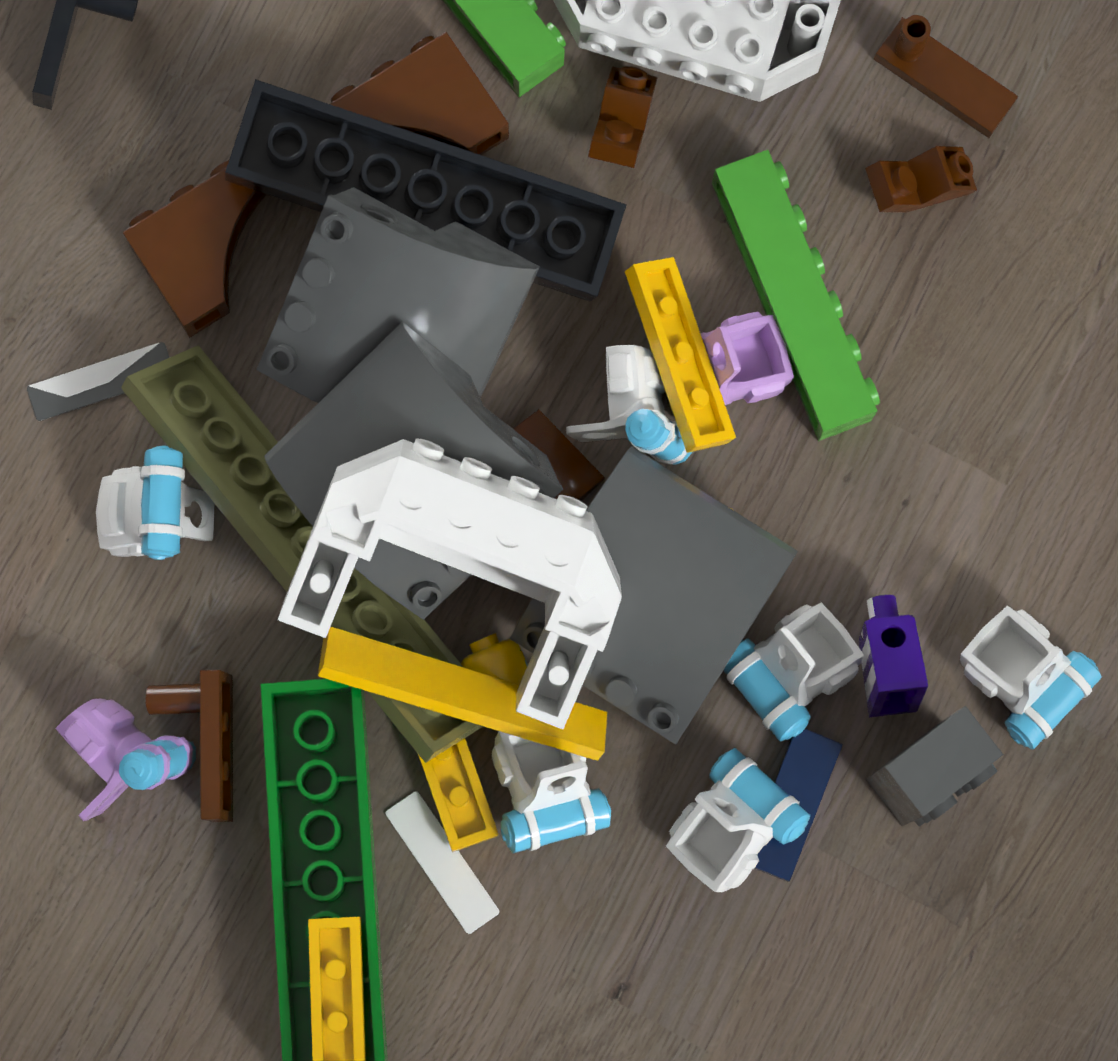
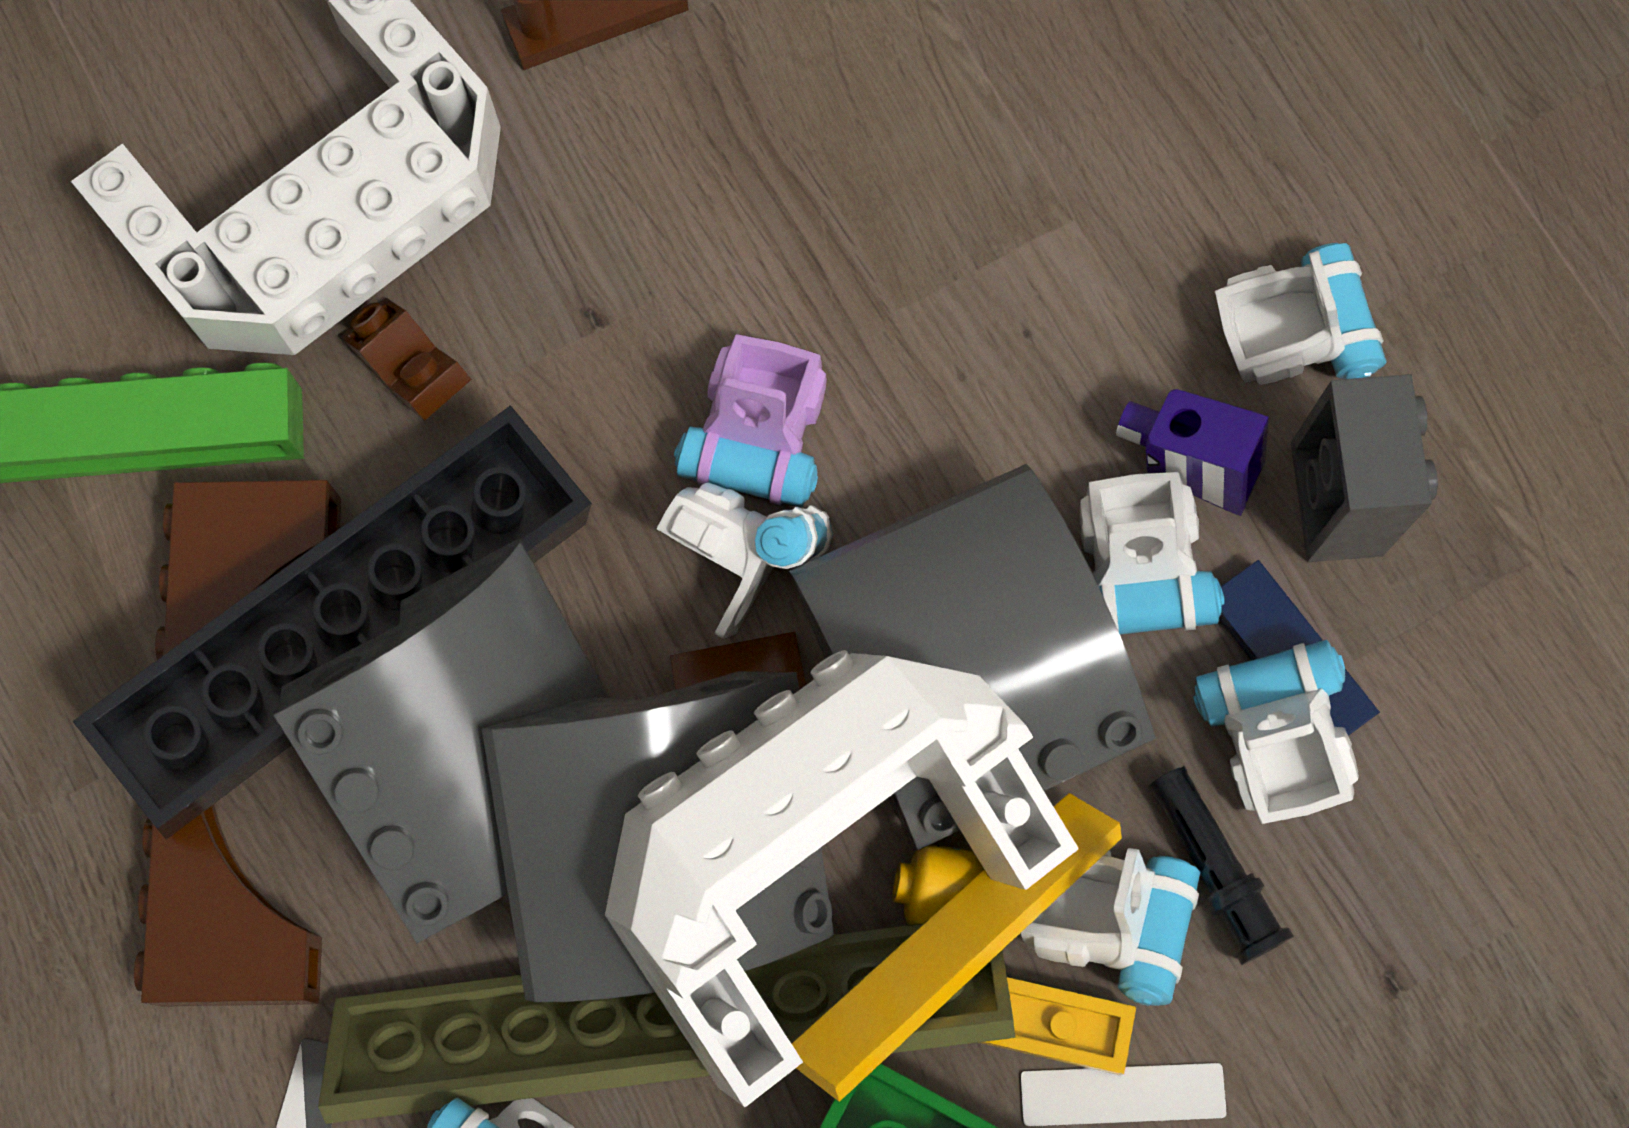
camera: 50 degrees left, 5 degrees down
(611, 854) = (1232, 891): none -> black pin
(680, 354) = (718, 454): yellow plate -> none
(793, 292) = (712, 297): bright green brick -> none
(921, 181) = (689, 97): reddish brown slope -> none

